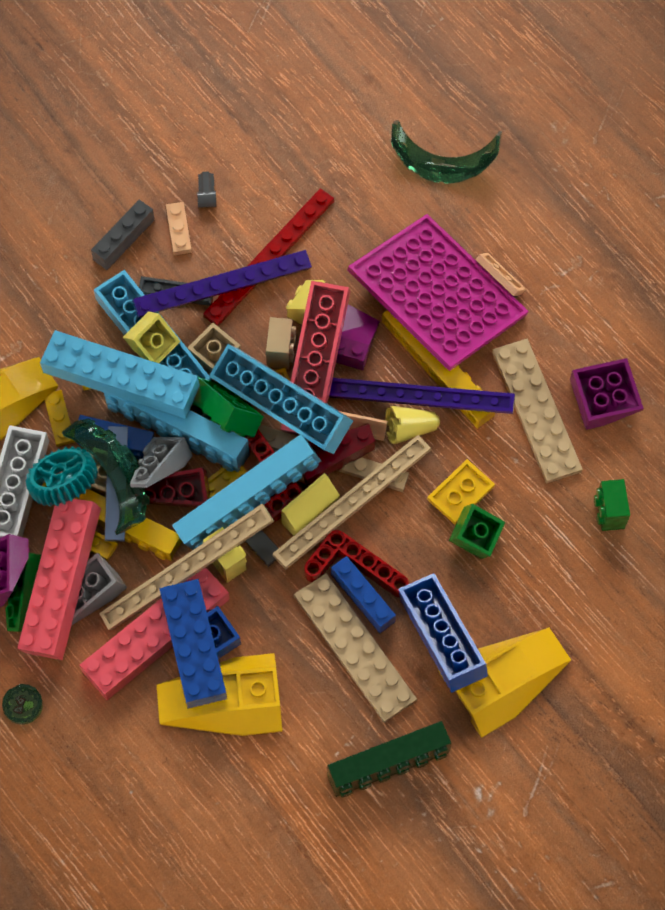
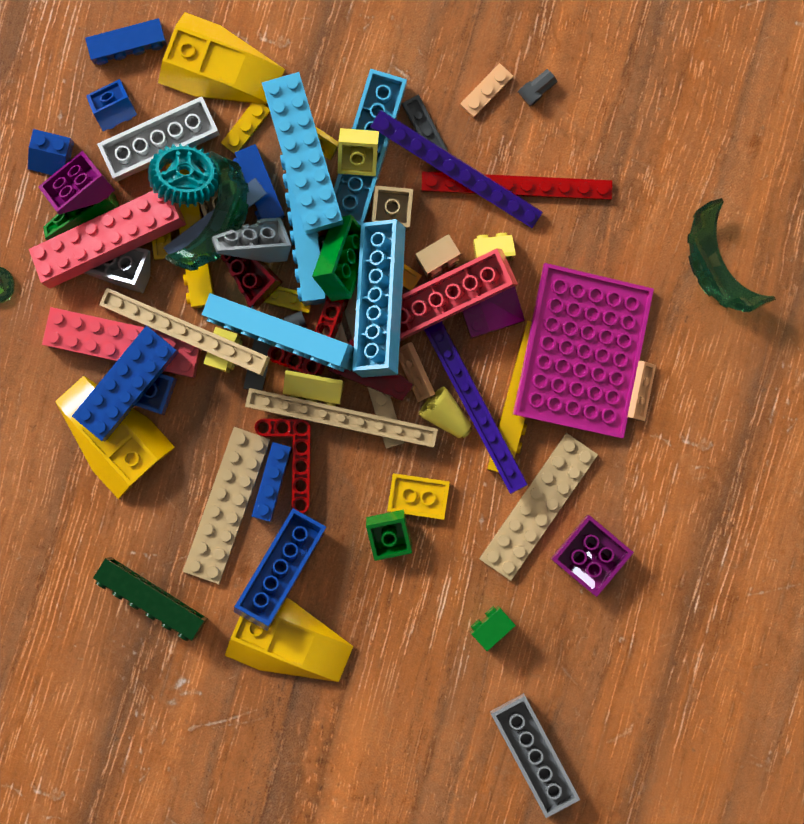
camera: 55 degrees right, 20 degrees up
(123, 234) = (443, 50): dark grey brick -> none

